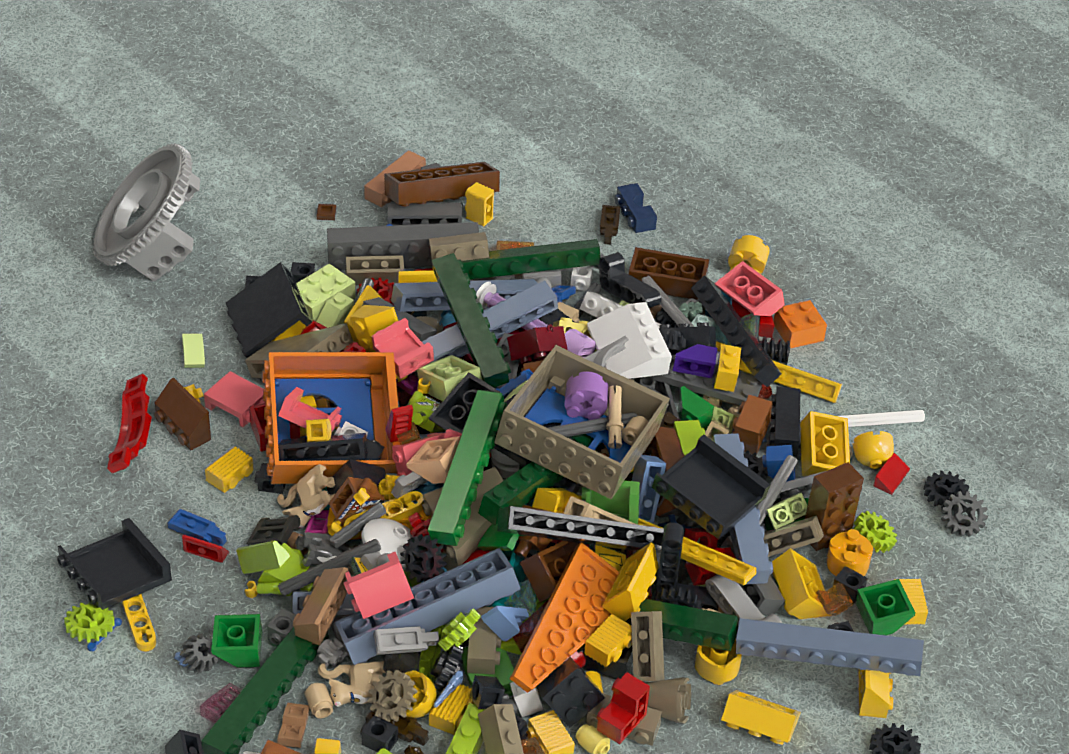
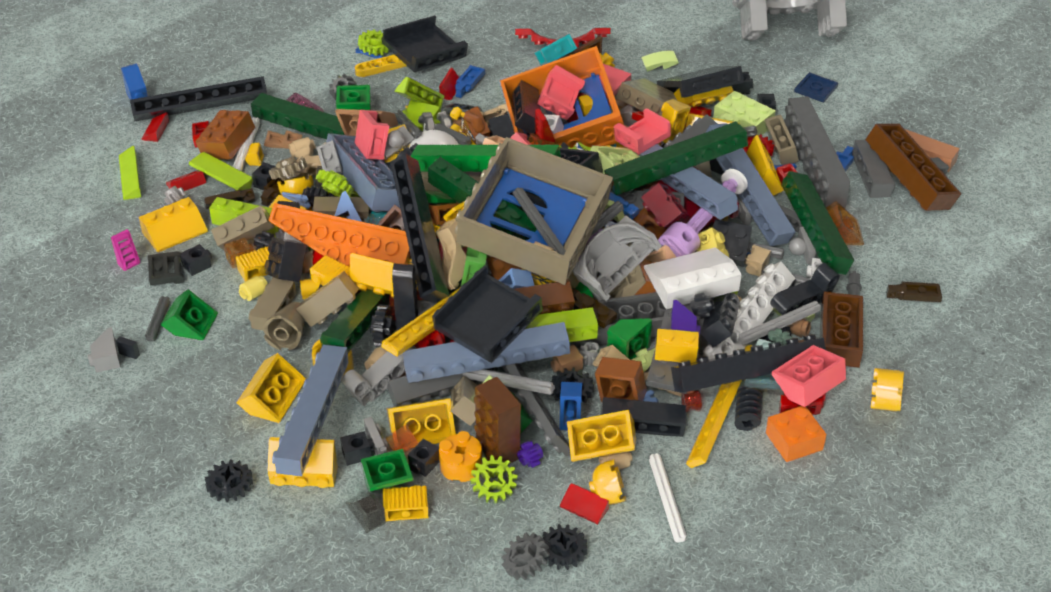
camera: 90 degrees right, 0 degrees up
(189, 426) = (555, 50): none -> teal panel
(267, 236) = (816, 87): none -> dark blue tile
(318, 430) = (534, 93): yellow brick -> none
(326, 212) = (861, 116): reddish brown tile -> none
(463, 246) = (809, 172): dark tan brick -> none
(479, 204) = (896, 195): yellow brick -> none
(563, 292) = (783, 250): blue hinge -> none
(586, 396) = (566, 211): medium lavender brick -> none
(615, 425) = (549, 232): tan pin -> none
(625, 708) = (261, 285): red brick -> none
(639, 217) = (931, 312): dark blue arch -> none
(852, 614) = (374, 432): none -> light grey hinge
(923, 626) = (367, 511): none -> clear smoke slope

